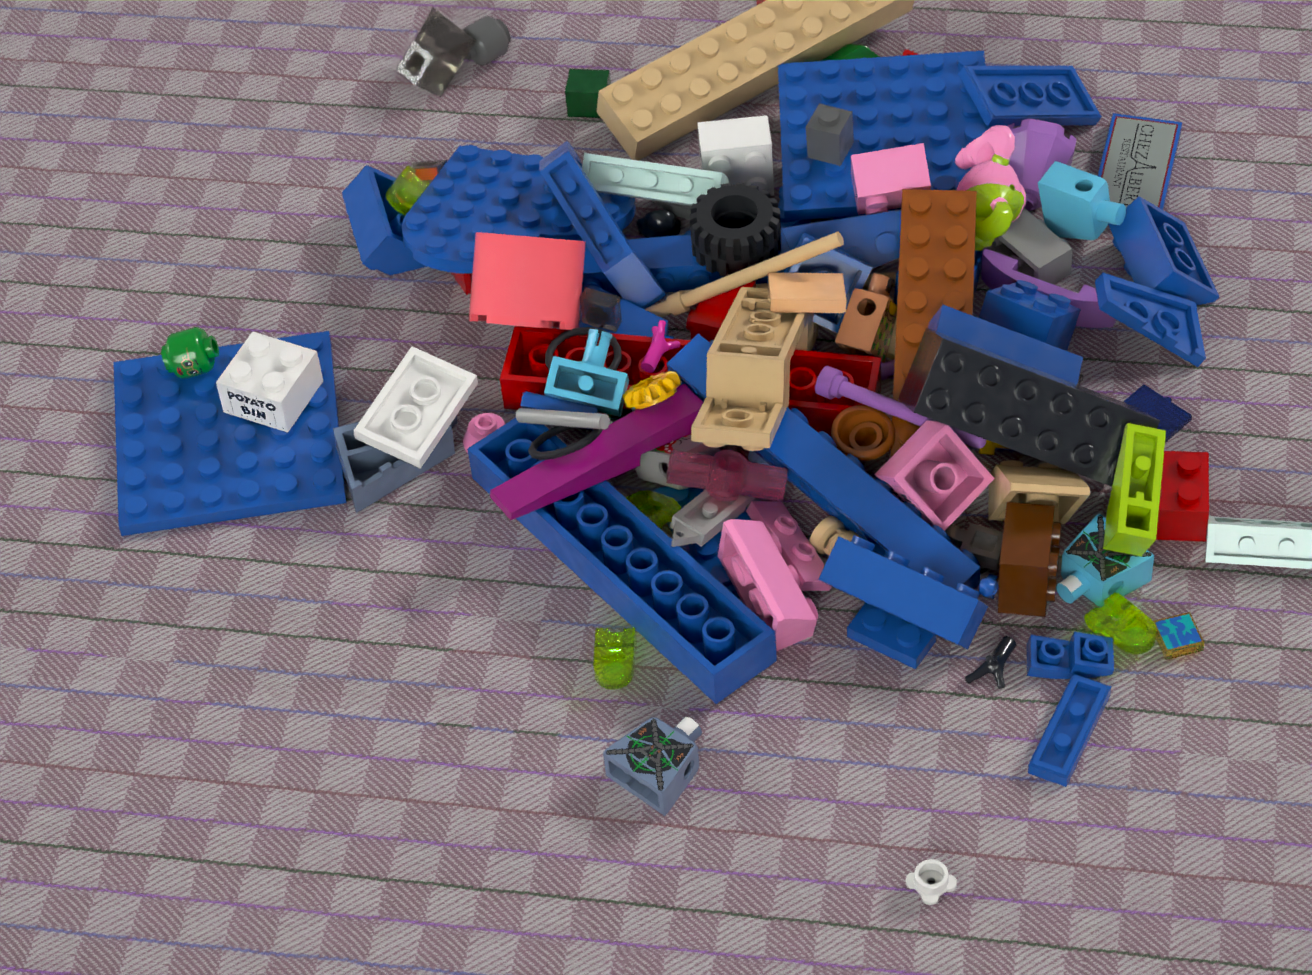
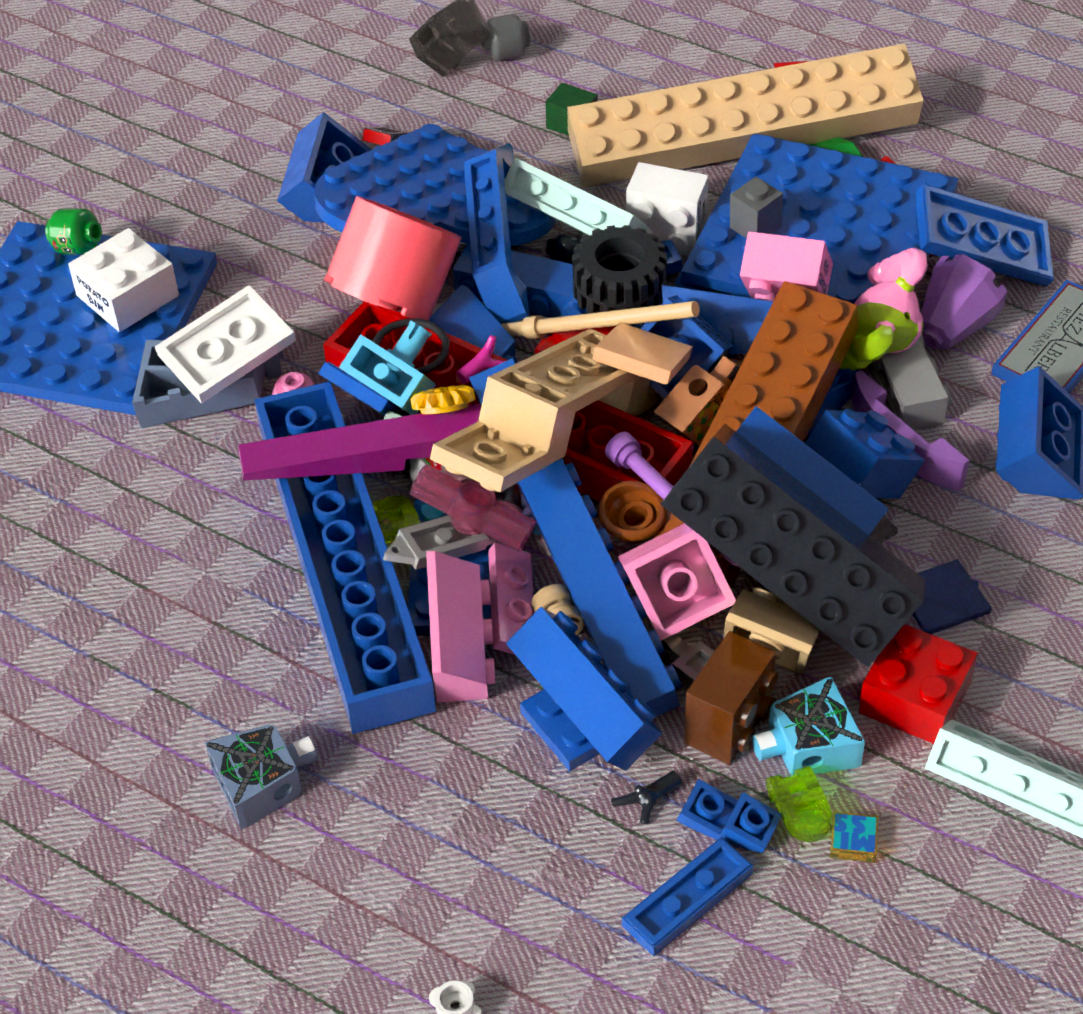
camera: 20 degrees right, 0 degrees up
(405, 190) = (349, 145): clear neon green plate -> none
(562, 418) = (345, 398): light grey bar -> none
(562, 451) = (335, 429): black piece -> none
(600, 309) = (451, 309): clear smoke plate -> none
(611, 663) = (277, 660): clear neon green plate -> none
(989, 586) = (671, 712): blue piece -> none
(1077, 203) = (975, 353): medium azure torso -> none
(1135, 491) = (867, 665): lime slope -> none
(1154, 314) = (998, 490): blue wing -> none

